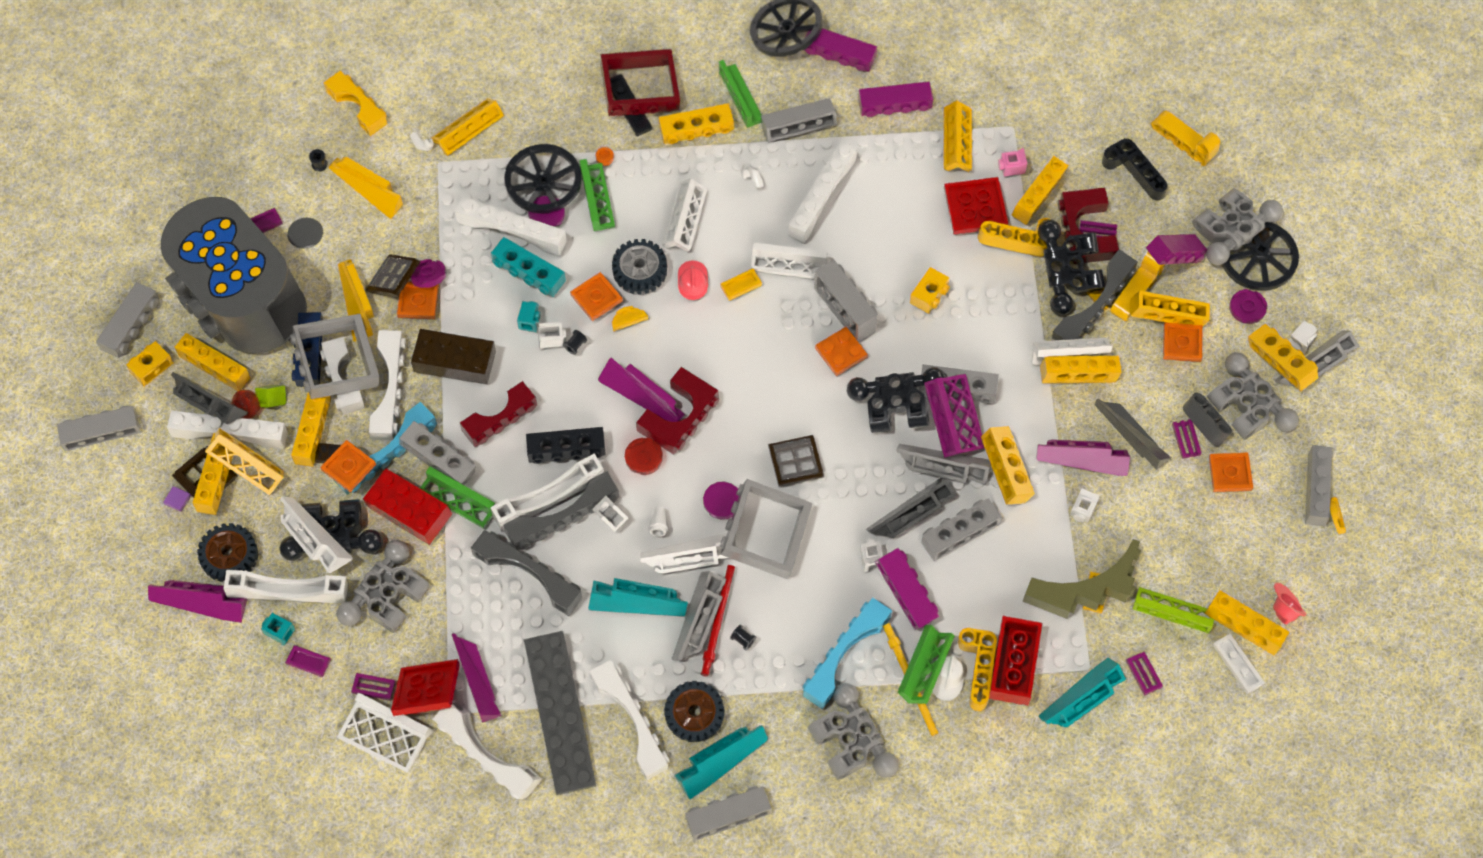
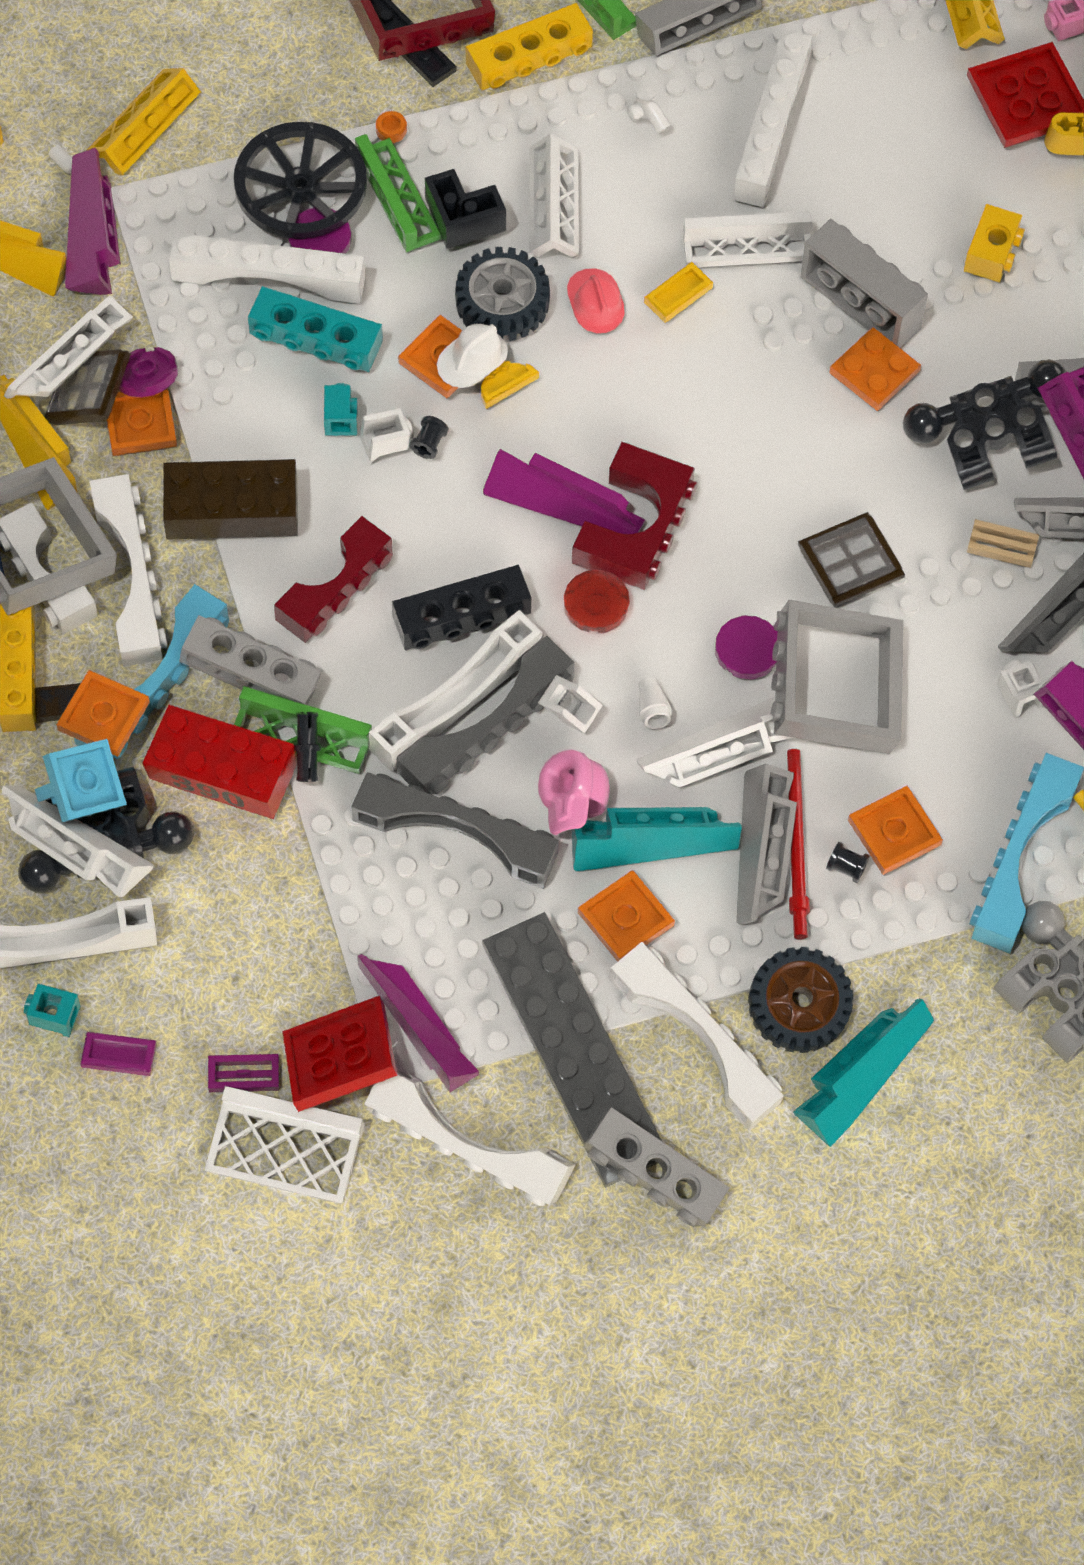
camera: 15 degrees left, 0 degrees up
(324, 502) = (82, 781): none -> medium azure bracket
(387, 253) = (70, 350): none -> white wedge
(389, 616) = (240, 949): light grey connector -> none
(420, 184) = (91, 227): none -> magenta wedge
(456, 508) = (307, 746): none -> black pin
(566, 763) = (706, 1189): none -> light grey brick
(597, 563) = (572, 790): none -> bright pink piece
(608, 642) = (625, 915): none -> orange plate
(611, 300) = (472, 356): none -> white piece
(630, 217) = (463, 215): none -> black brick
(728, 813) = (903, 1154): light grey brick -> none
(775, 624) = (895, 830): none -> orange plate
(888, 462) = (1003, 538): none -> tan tile

